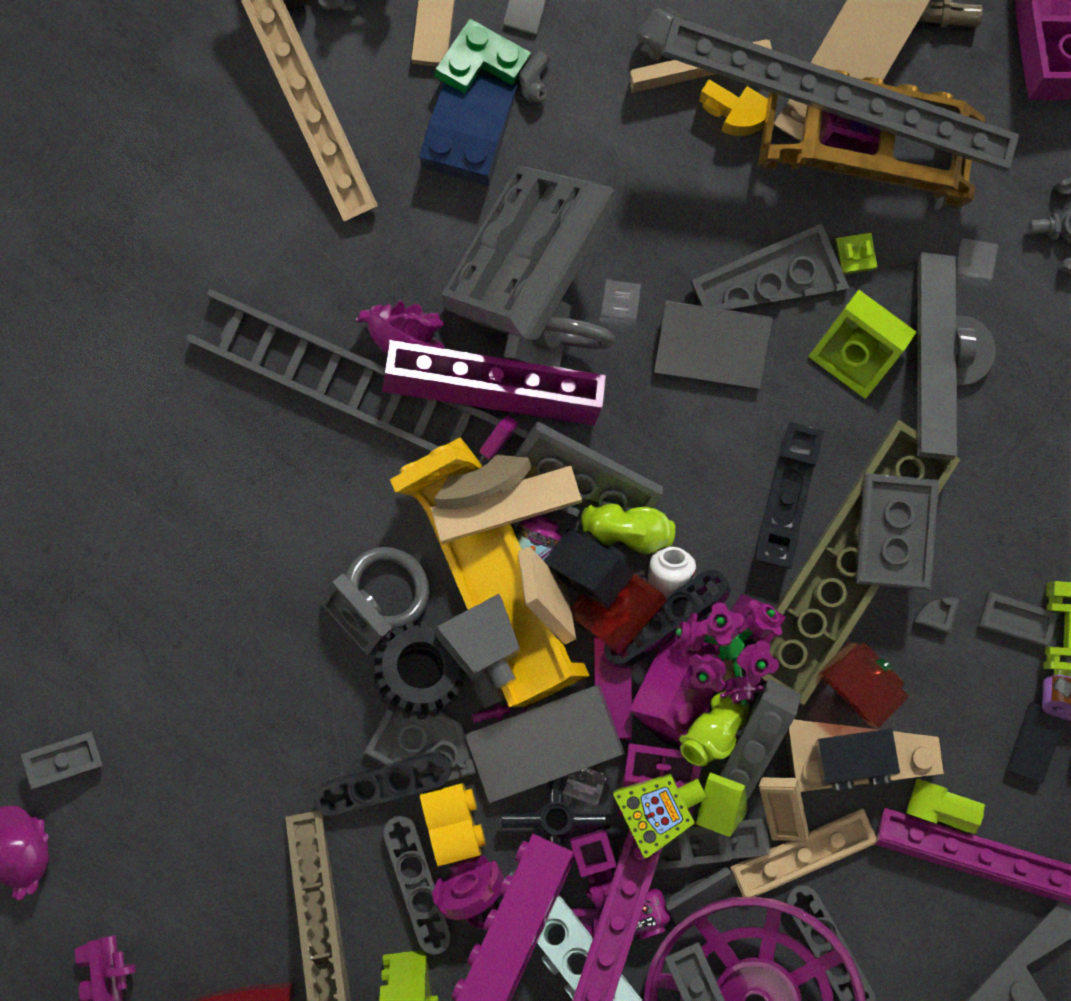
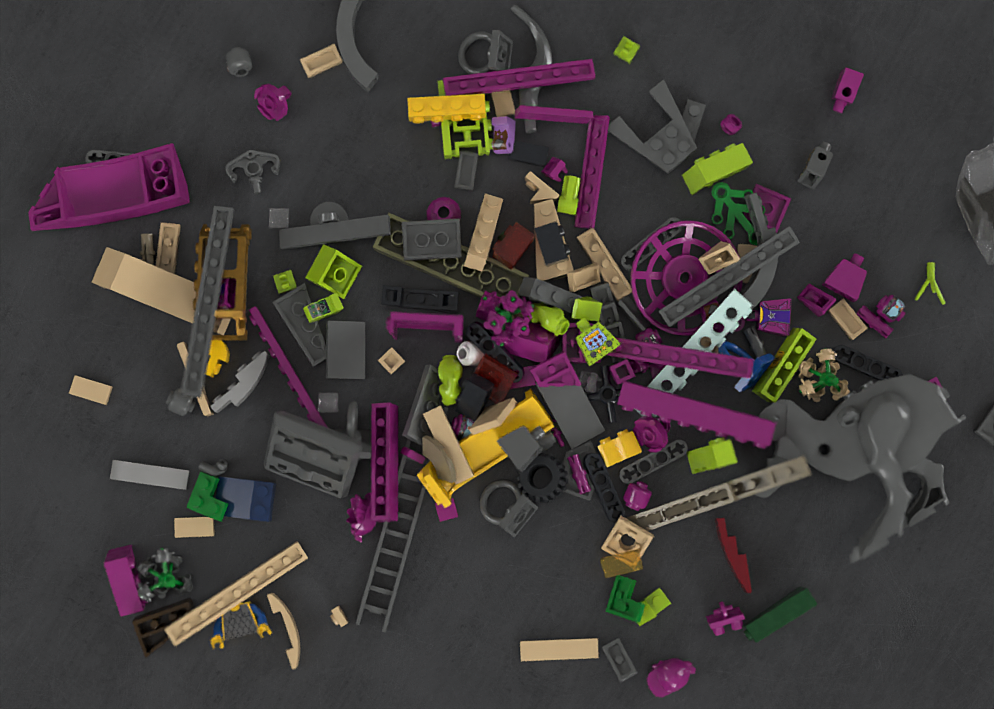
camera: 105 degrees left, 0 degrees up
(101, 652) = (559, 649): none -> tan tile
(150, 832) = (654, 603): none -> lime slope
(166, 780) = (620, 600): none -> green plate
(228, 262) = (339, 617): none -> tan plate
(237, 793) = (621, 563): none -> clear yellow tile
(248, 82) = (239, 621): none -> torso
(253, 811) = (613, 542): none -> tan piece
(267, 156) = (278, 605): none -> tan slope
(358, 844) = (637, 495): none -> magenta head
(382, 488) = (448, 512): none -> magenta tile
(414, 740) = (579, 474): none -> magenta pin
(611, 725) = (555, 372): none -> magenta wing
(680, 425) = (391, 361): none -> tan plate
(688, 161) = (249, 377): none -> light grey slope
(695, 233) = (285, 366): none -> magenta plate
(752, 440) = (426, 321): none -> magenta panel
(796, 314) = (323, 308): none -> lime leg
(897, 631) = (483, 232): none -> tan brick
(938, 614) = (469, 212): dark grey tile -> none
(950, 52) = (168, 246): none -> tan tile
(955, 582) = (451, 205): none -> magenta piece
(959, 761) = (544, 191): none -> tan slope
(1001, 786) = (553, 168): none -> magenta tile

